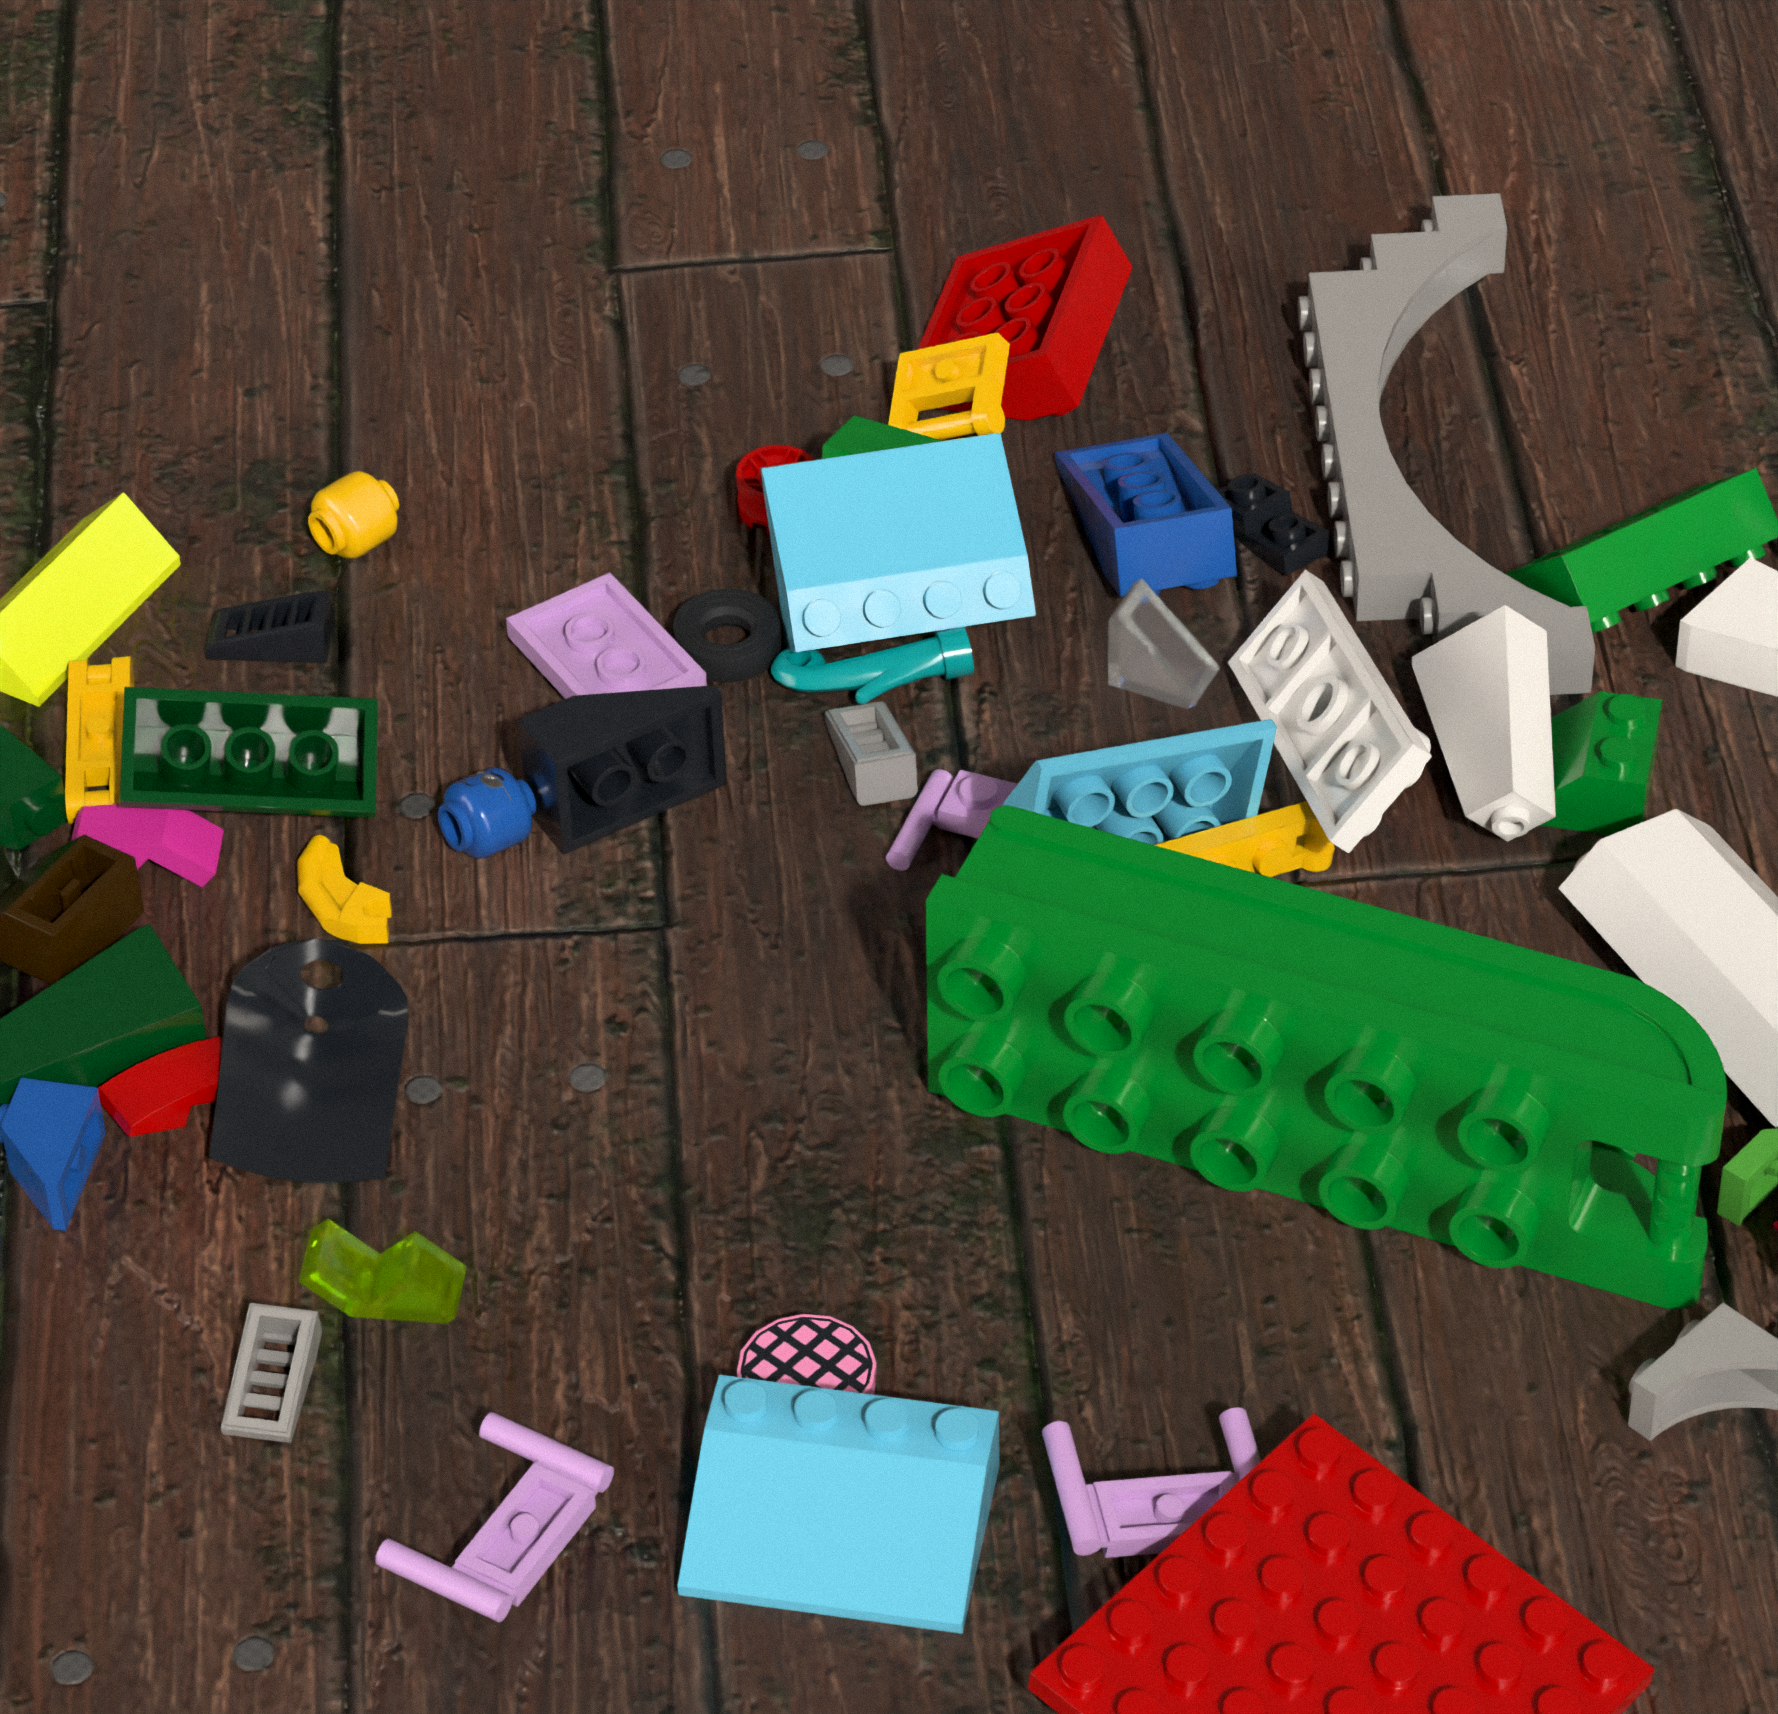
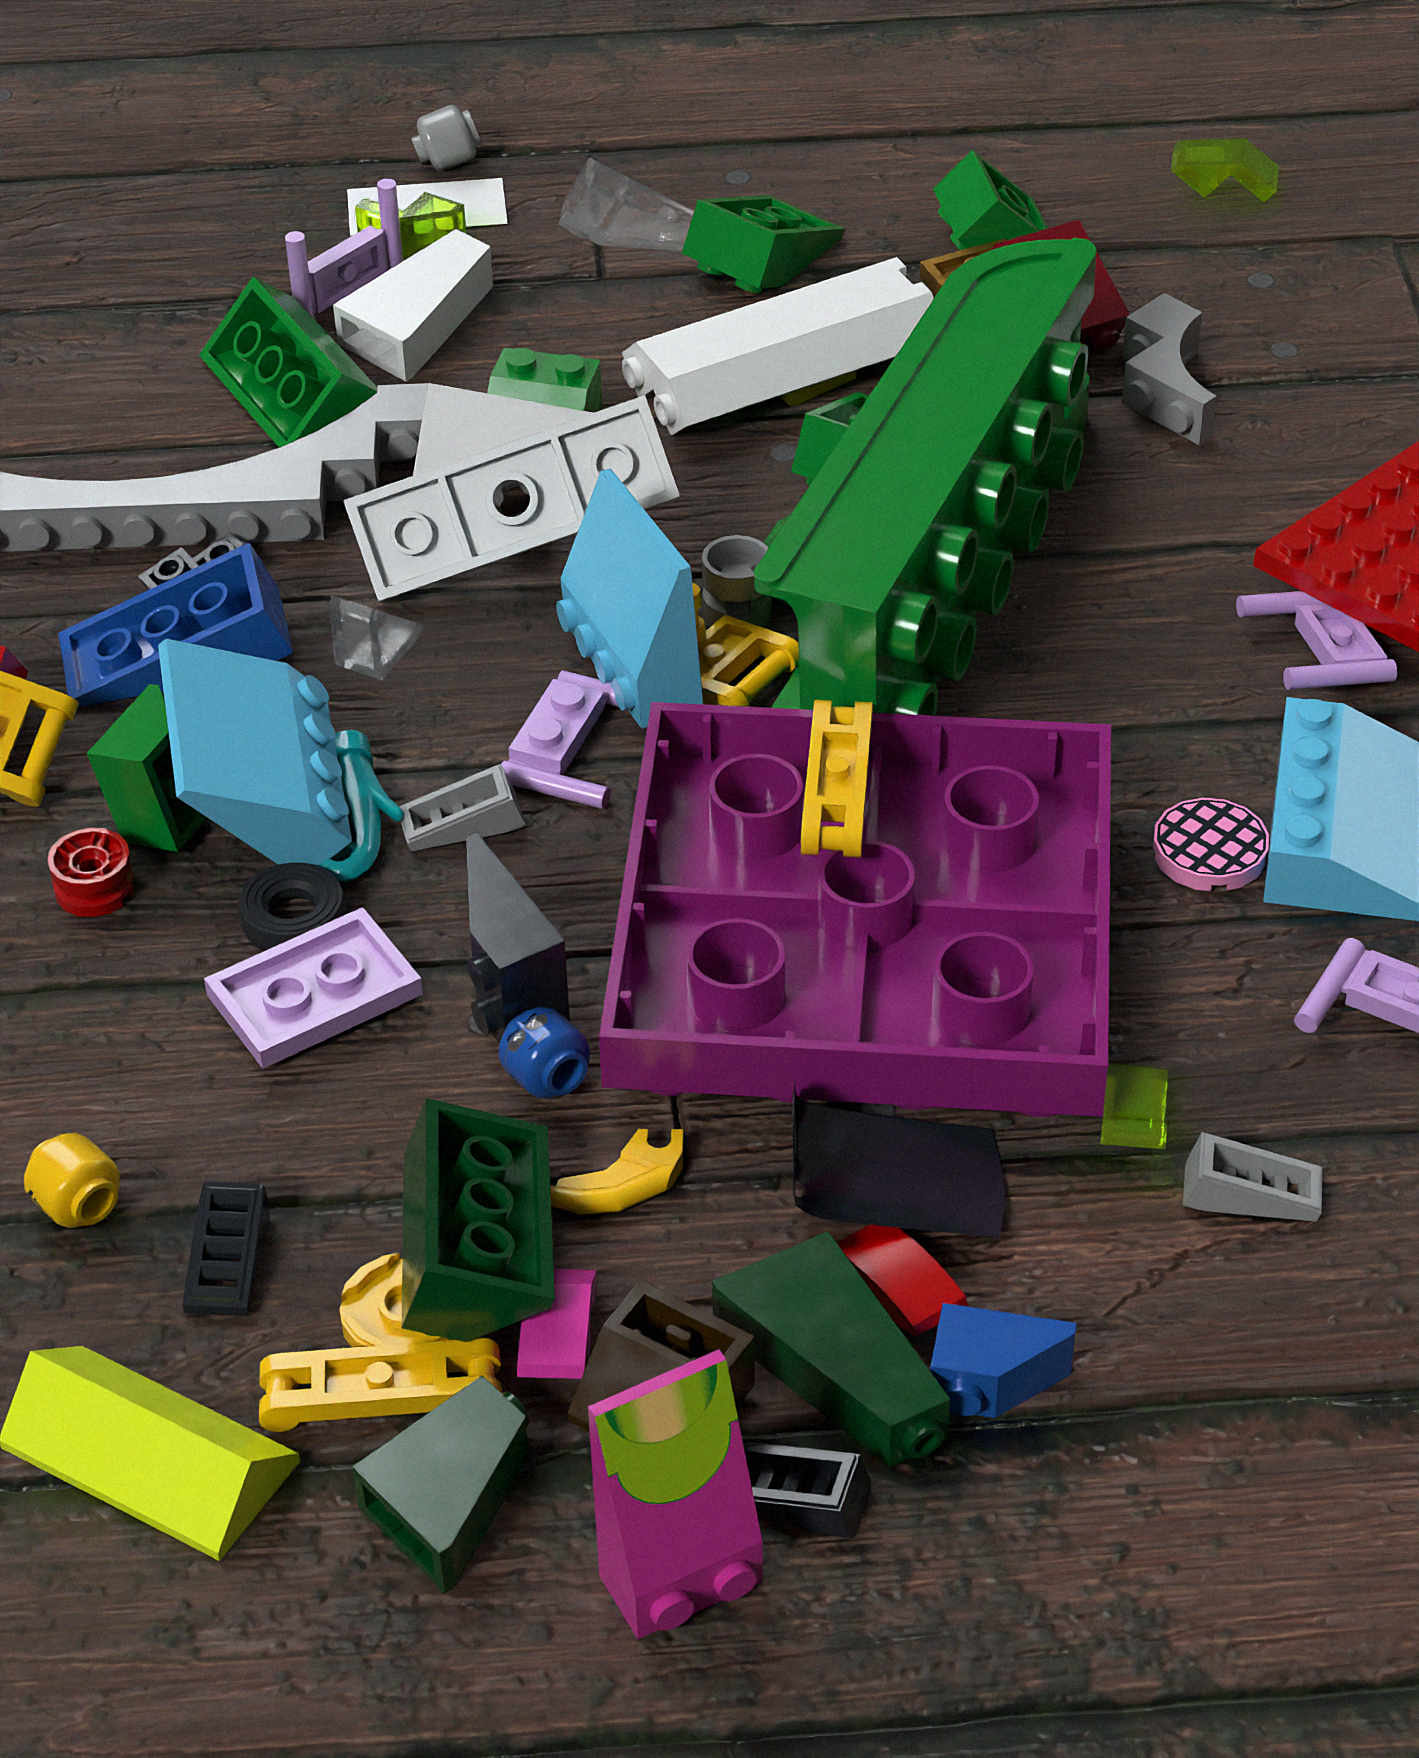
camera: 90 degrees left, 0 degrees up
(656, 1038) = (917, 977): none -> magenta plate
(794, 959) = (837, 778): none -> yellow plate

